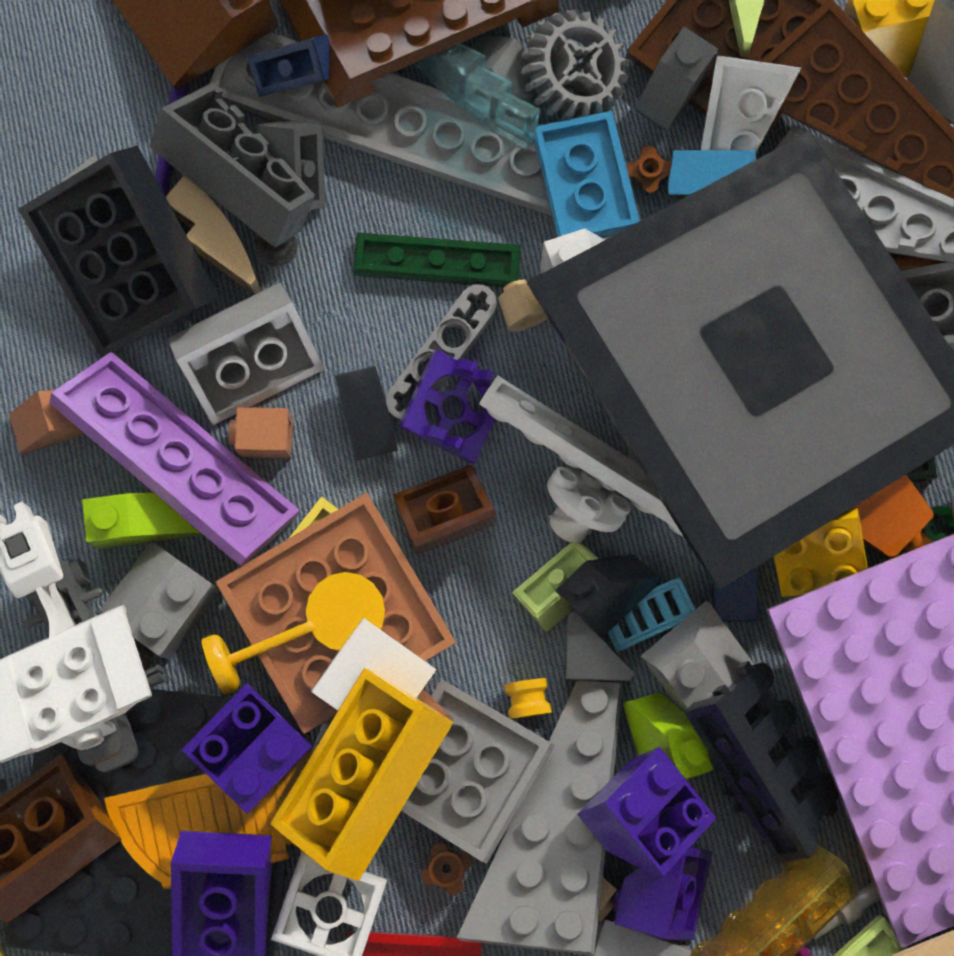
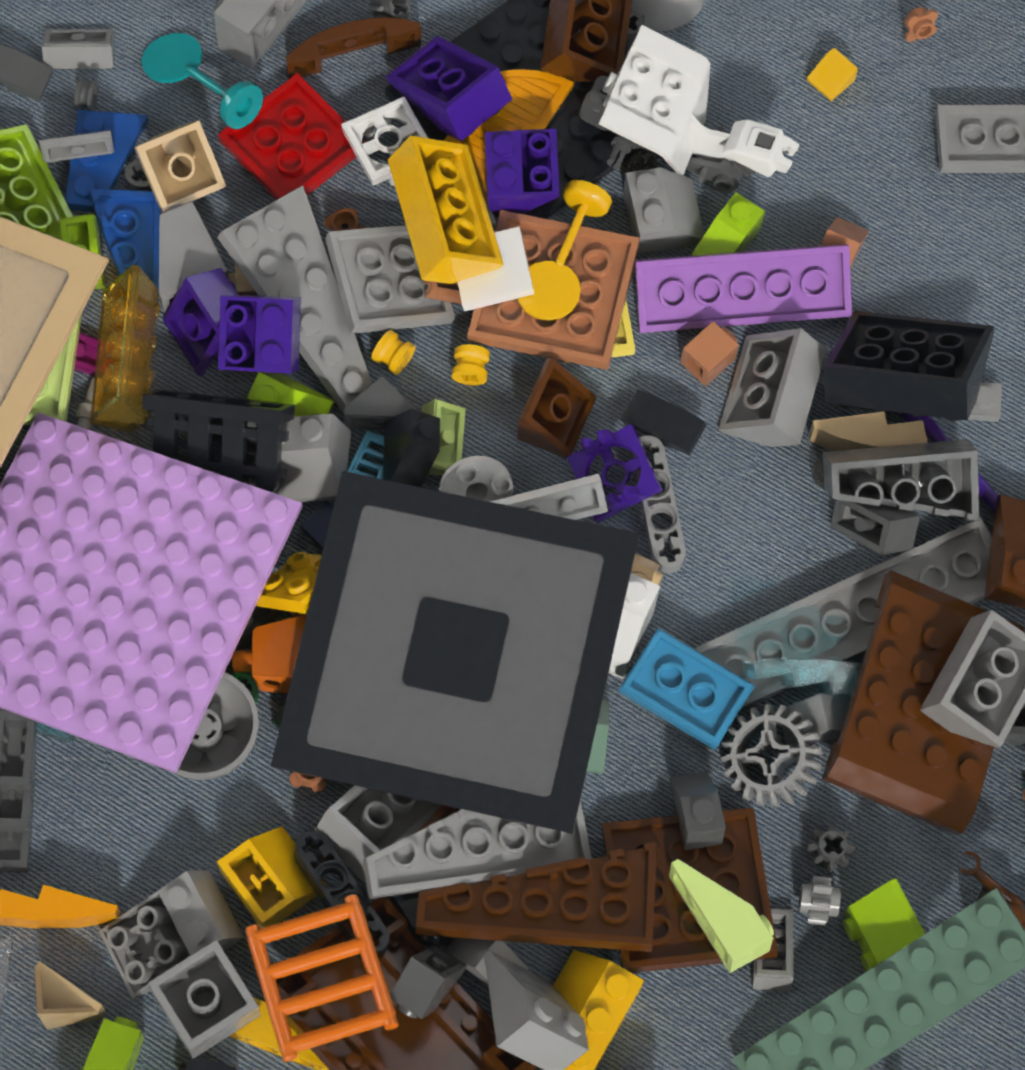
camera: 130 degrees right, 10 degrees down
(291, 65) = (944, 572): dark blue slope -> none
(436, 260) = (724, 559): dark green tile -> none
(473, 621) = (470, 364): none -> yellow wheel
(649, 181) = (654, 755): dark orange plate -> none
(699, 168) = (613, 767): dark azure slope -> none
(744, 102) = (631, 820): white wing -> none

